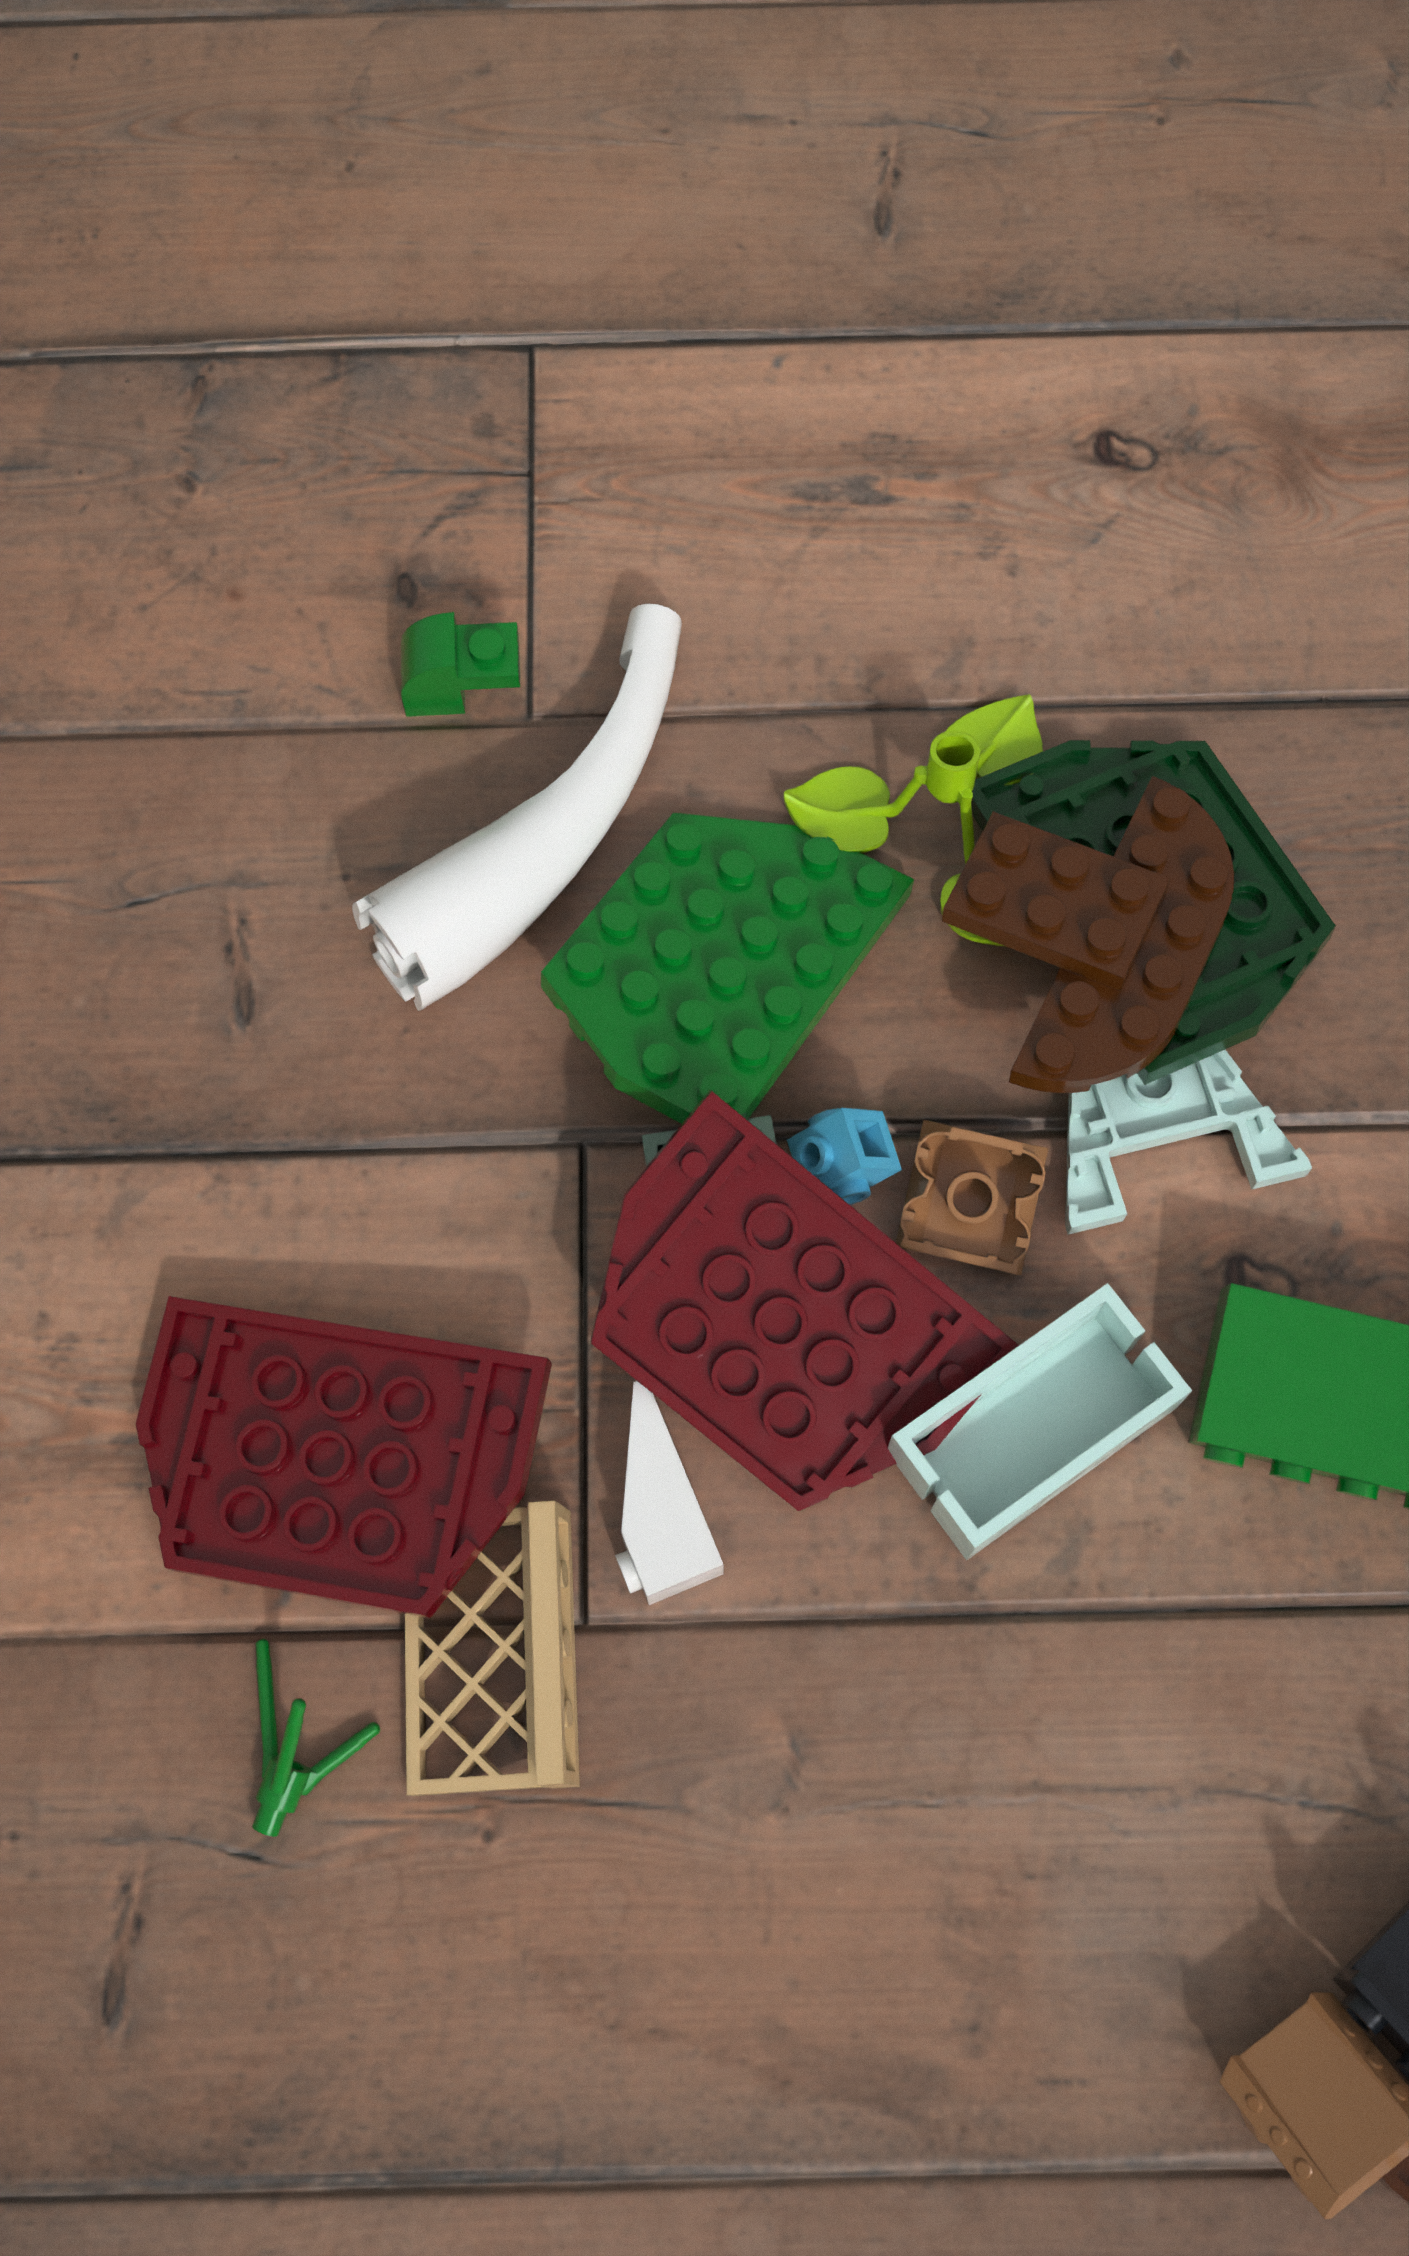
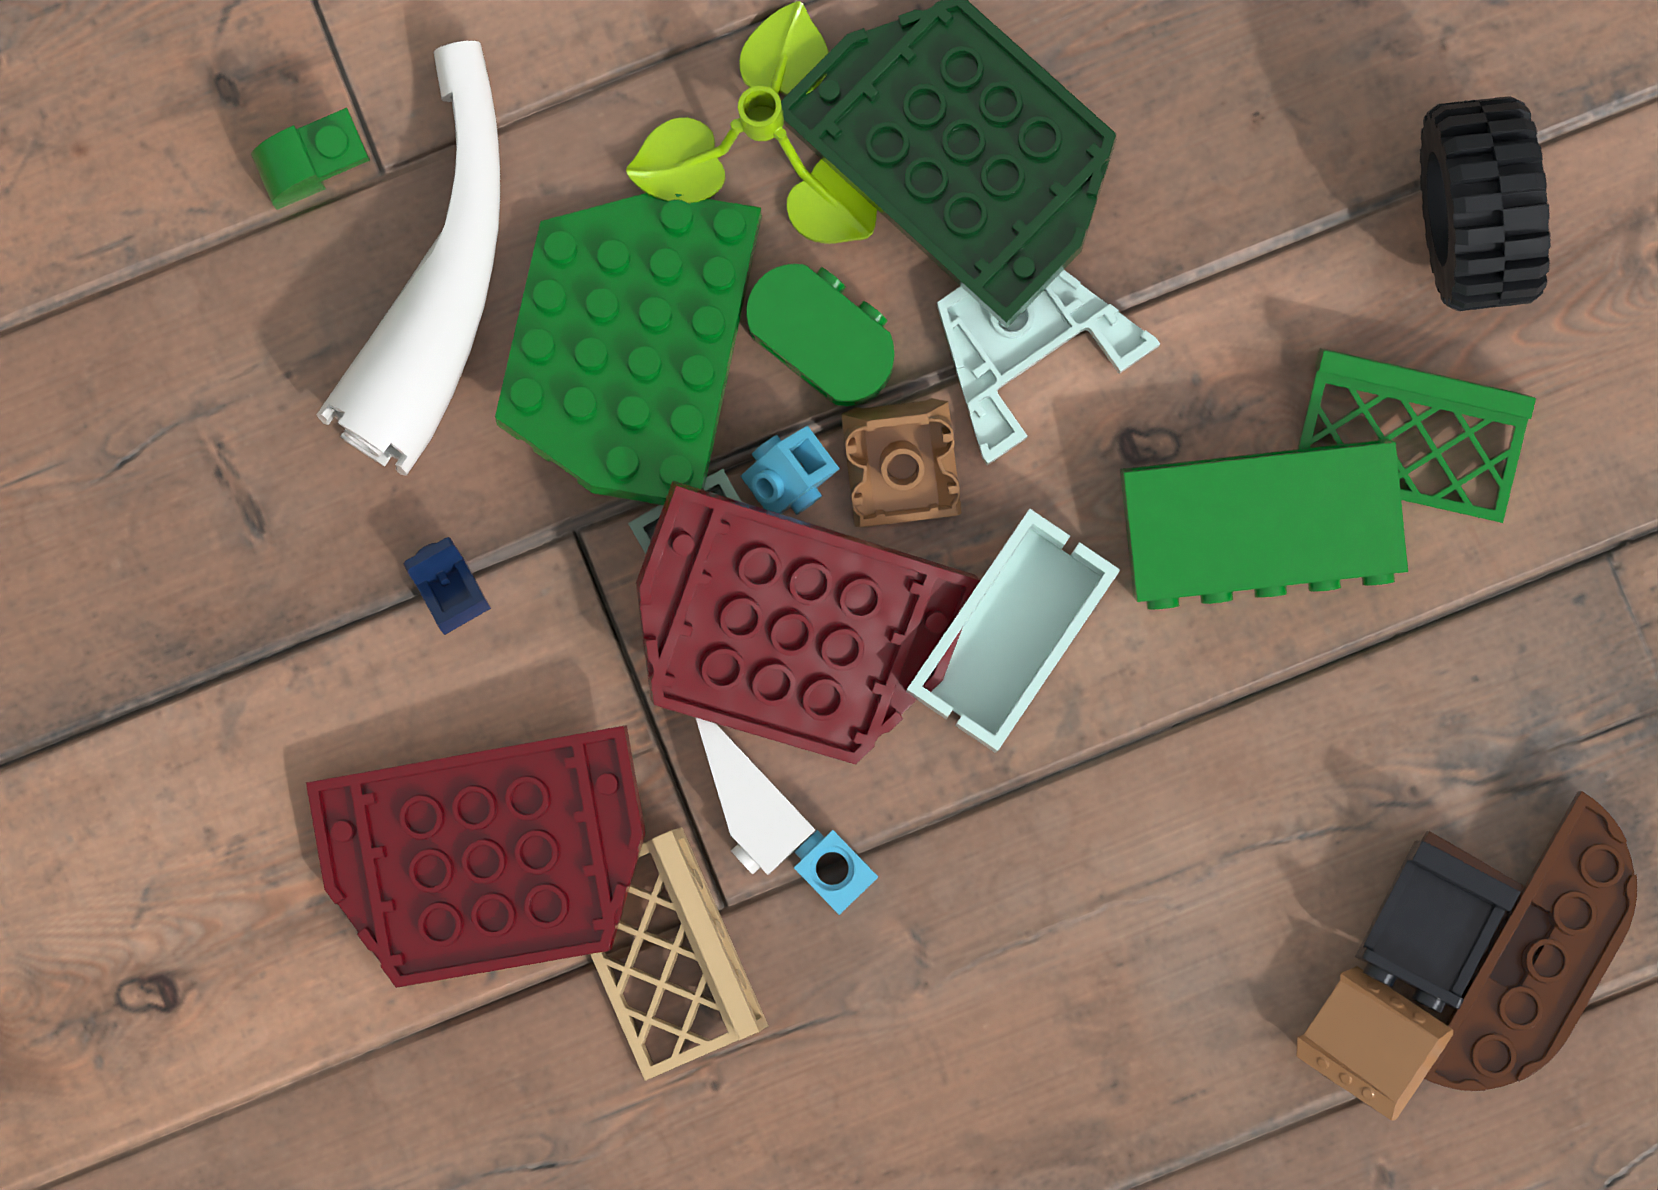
camera: 20 degrees left, 15 degrees up
(282, 1776) = (550, 1103): green plant -> none
(416, 1139) = (446, 585): none -> dark blue bracket
(734, 1655) = (858, 877): none -> medium azure brick
(933, 1027) = (821, 333): none -> green brick
(1118, 926) = (940, 207): reddish brown plate -> none

